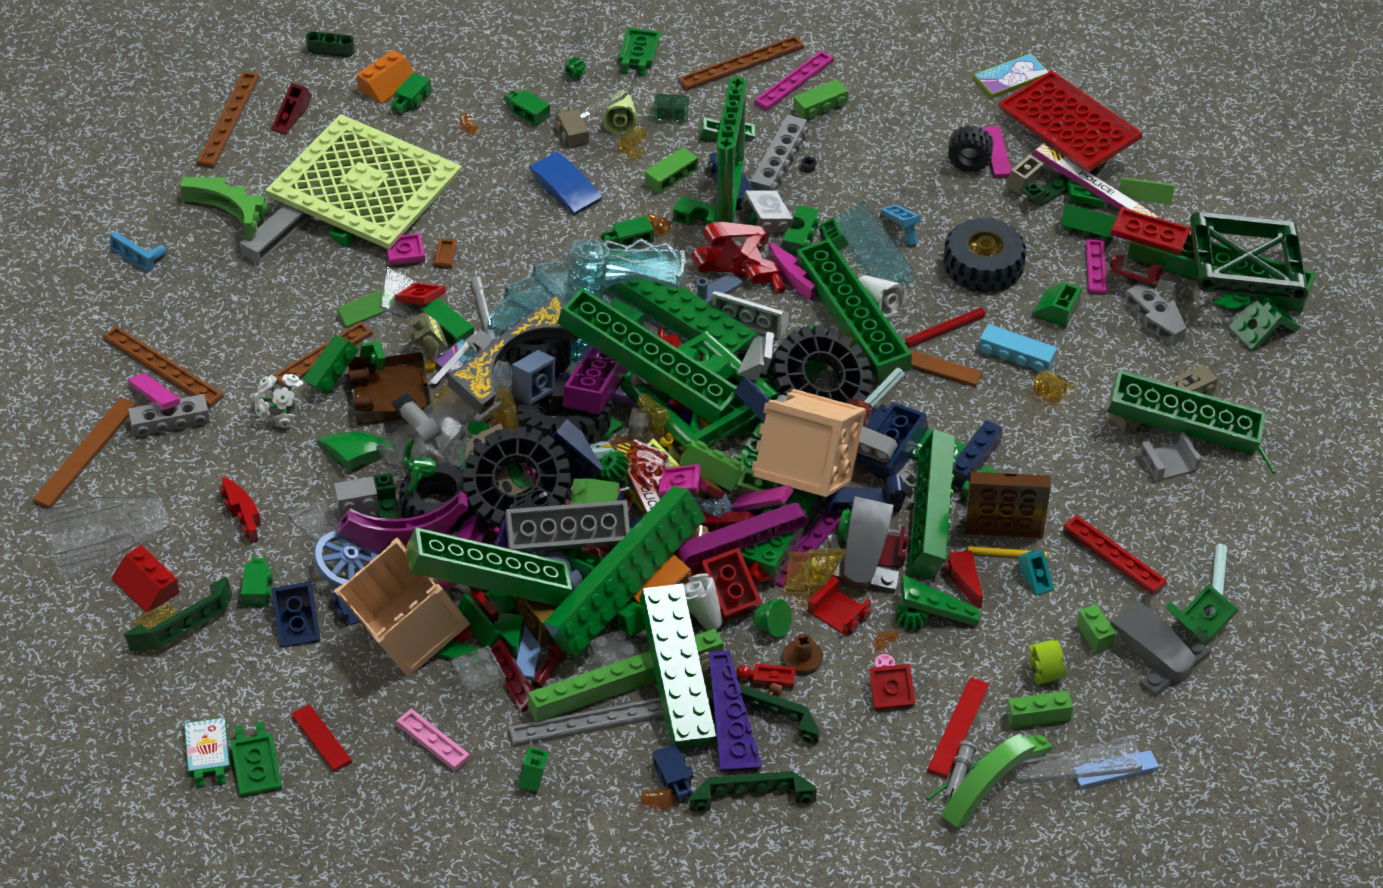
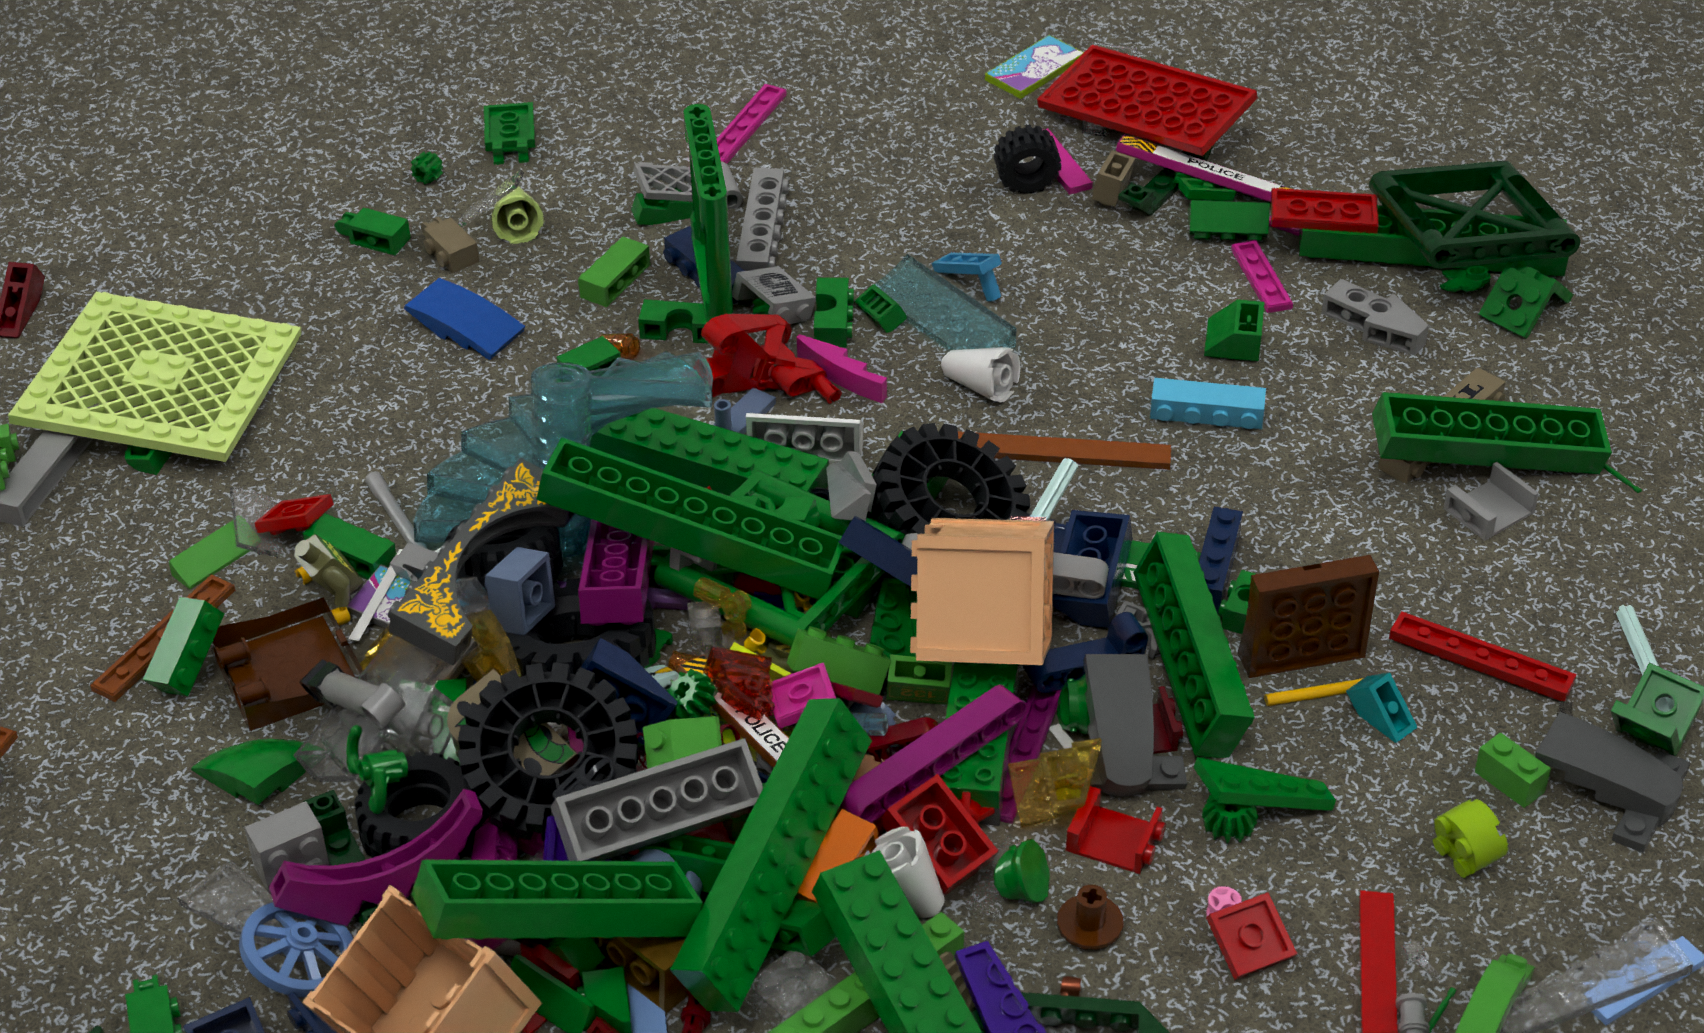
camera: 15 degrees left, 5 degrees down
(242, 506) = (94, 901): red slope -> none
(282, 399) = (119, 717): white plant -> none
(330, 44) = (53, 205): dark green beam -> none
(375, 352) = (252, 613): green bracket -> none
(384, 76) = (150, 232): orange slope -> none
(406, 250) = (253, 458): dark pink plate -> none
(411, 93) = (195, 245): green brick -> none
(445, 253) = (314, 451): dark orange tile -> none
(466, 124) = (291, 272): clear orange arm -> none
(627, 143) = (537, 250): clear yellow bar -> none
(671, 107) = (584, 191): clear green brick -> none
(740, 63) = (656, 121): dark orange tile -> none
(760, 120) = (668, 192): none -> light grey piece
(762, 499) = (939, 692): dark pink tile -> none
(767, 674) = (1052, 965): red plate -> none
(812, 164) = (806, 226): black bush -> none
(820, 99) = (790, 142): bright green brick -> none
(854, 309) = (957, 396): green brick -> none
(884, 637) = (1200, 862): clear orange arm -> none
(945, 327) = (1090, 398): red axle -> none
(964, 575) = (1283, 738): red slope -> none
(984, 255) = (1106, 290): black wheel -> none
(1039, 709) = (1490, 915): bright green brick -> none
(1051, 386) = (1278, 442): clear yellow piece -> none
(1147, 190) = (1285, 166): bright green slope -> none
(1153, 277) = (1350, 272): dark red panel -> none

